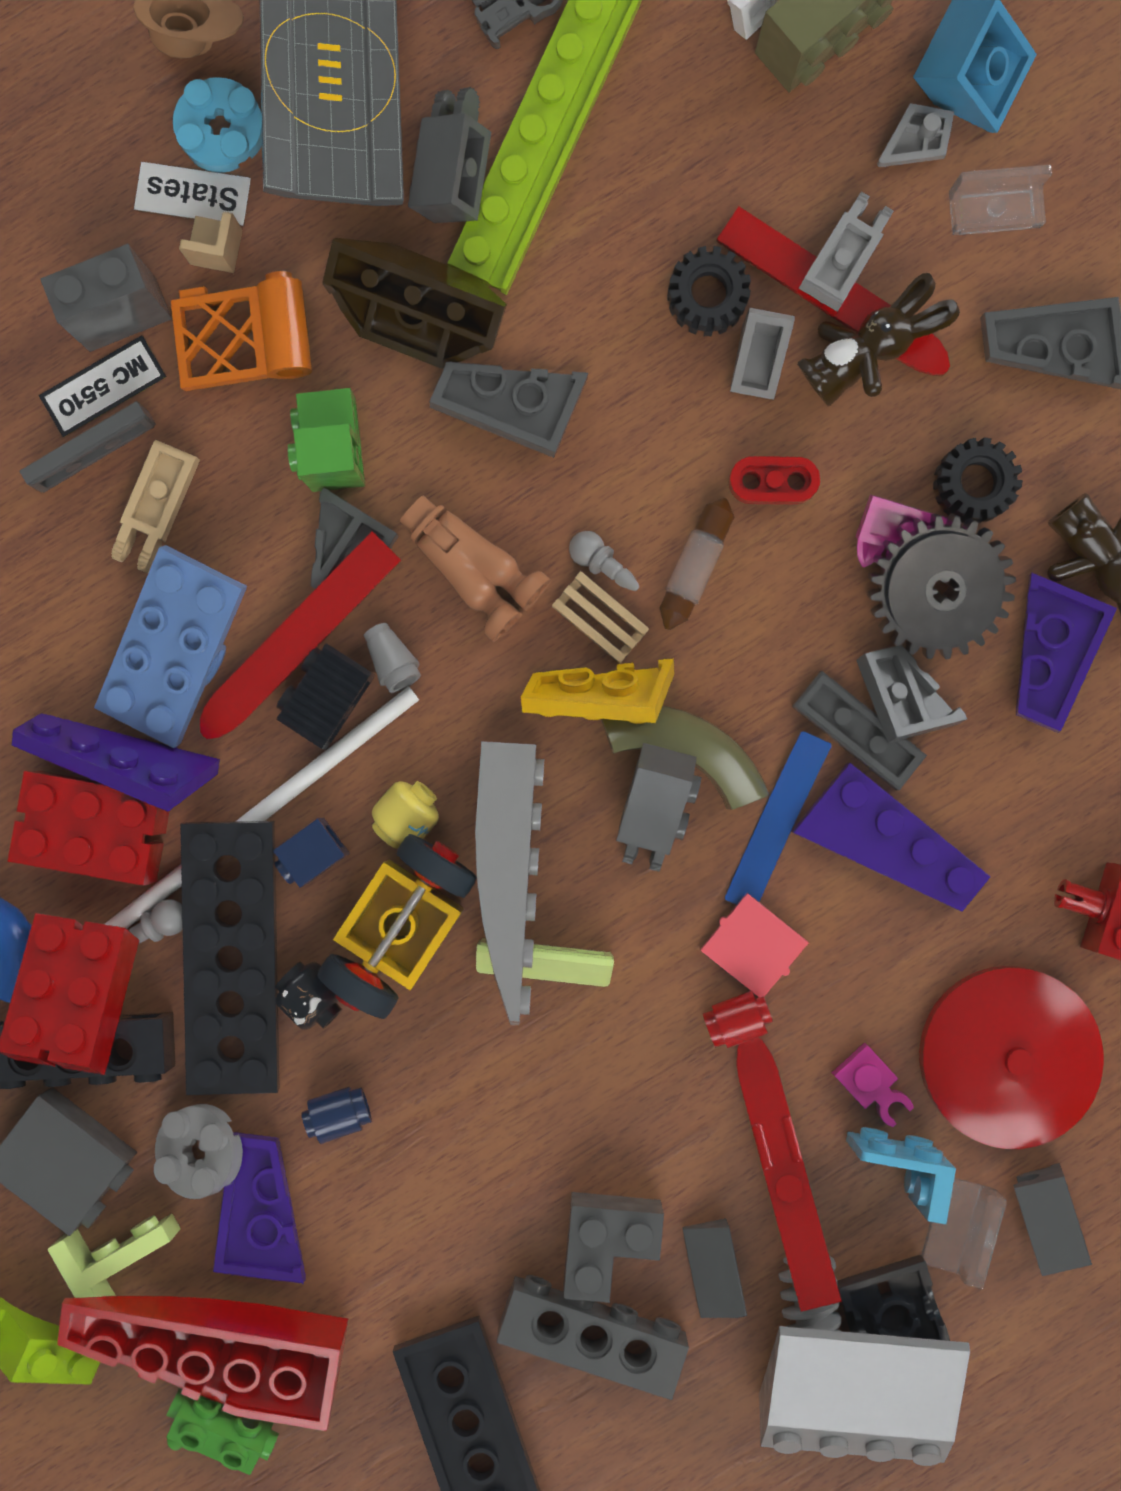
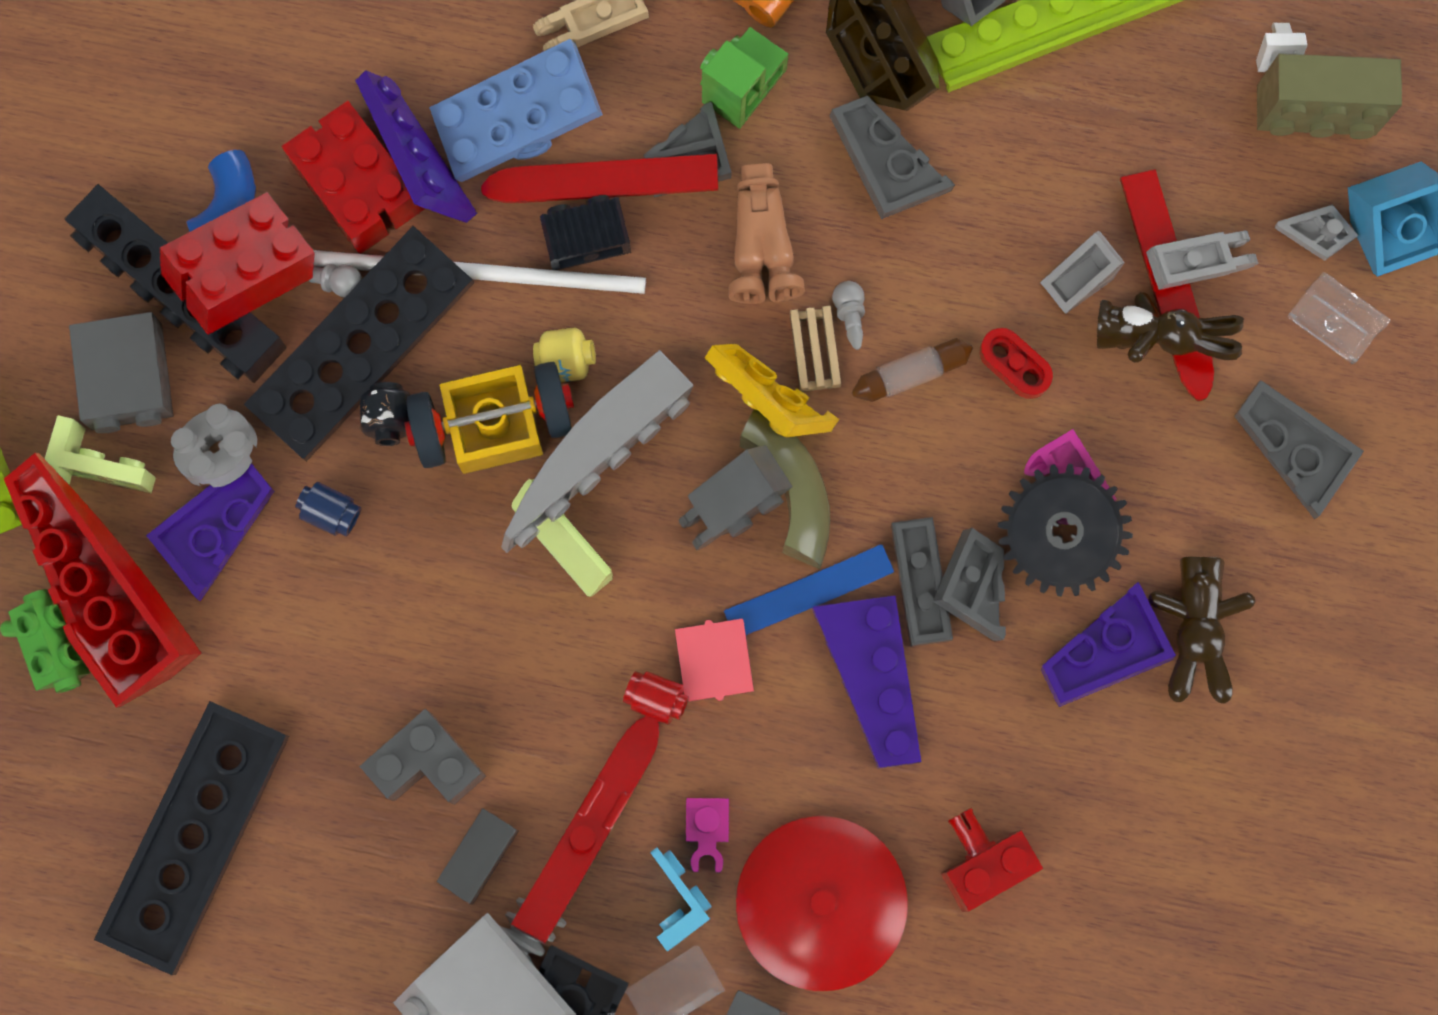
camera: 40 degrees right, 10 degrees down
(309, 853) = (477, 323): dark blue brick -> none
(391, 658) = (650, 251): light grey cone -> none
(651, 1371) = (311, 767): dark grey brick -> none
(708, 264) = (1090, 182): black tyre -> none
(999, 465) = (1173, 470): black tyre -> none

